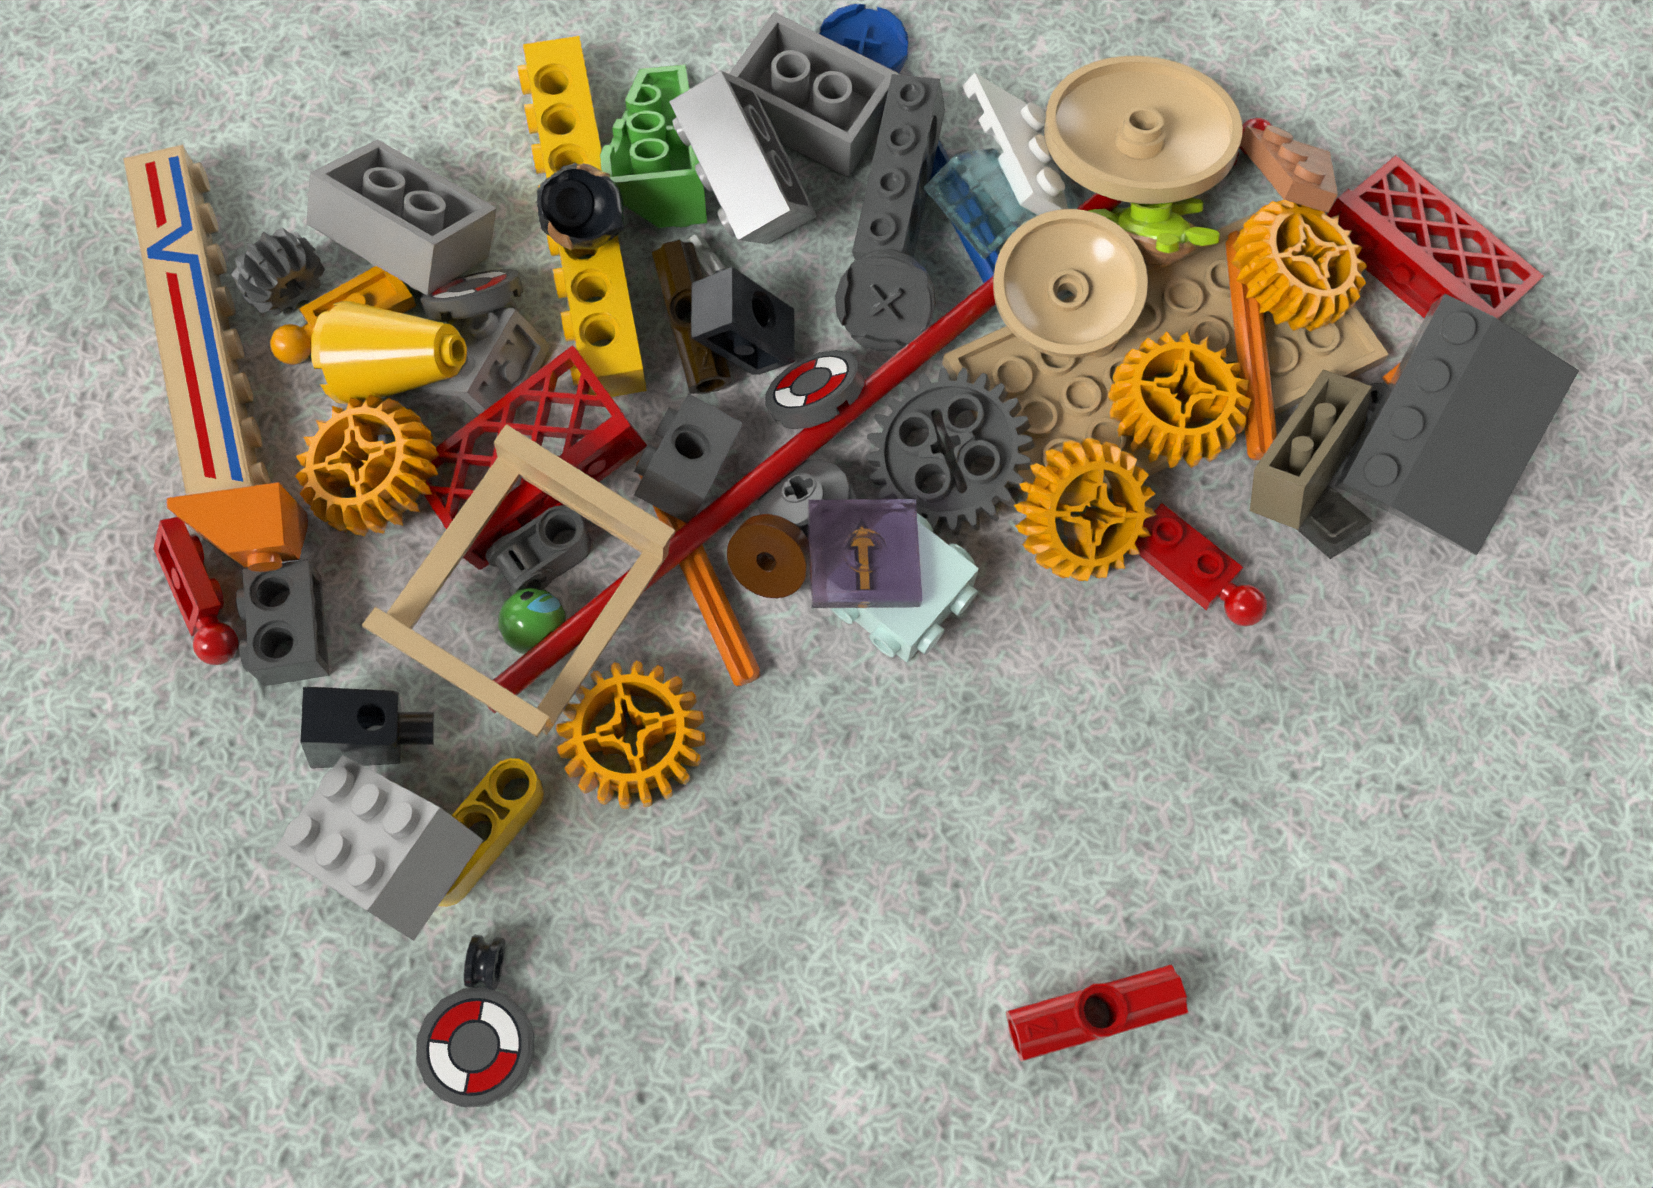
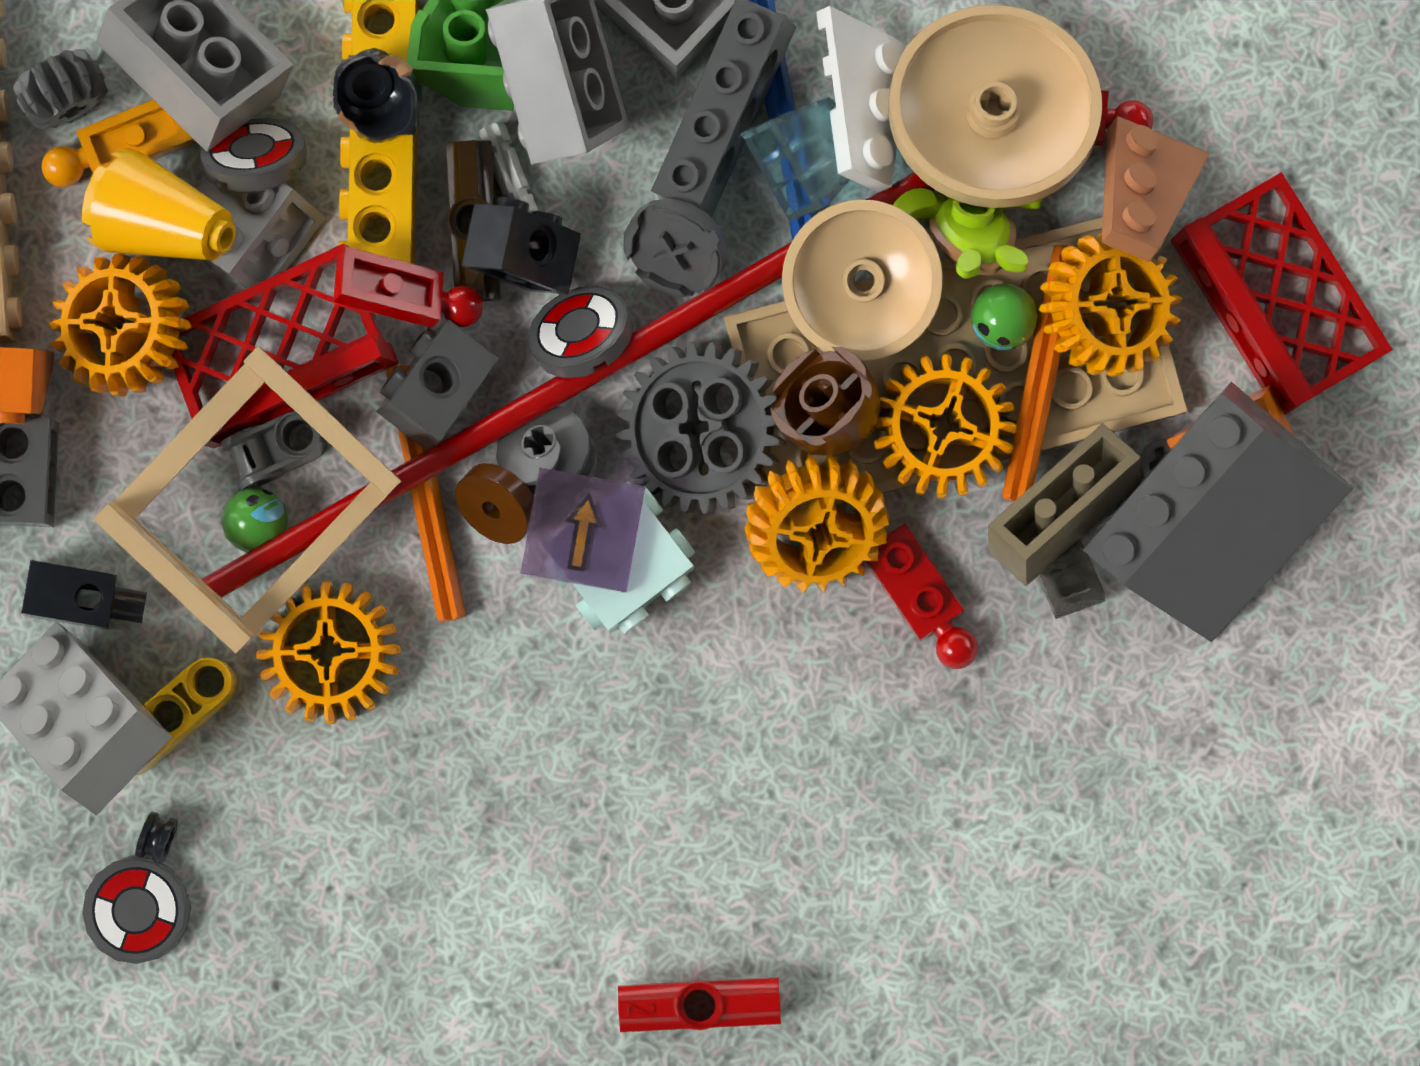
camera: 20 degrees right, 15 degrees up
(637, 371) = (402, 290): none -> red plate
(1069, 391) = (826, 402): none -> reddish brown cylinder
(1204, 298) = (1004, 316): none -> bright green piece

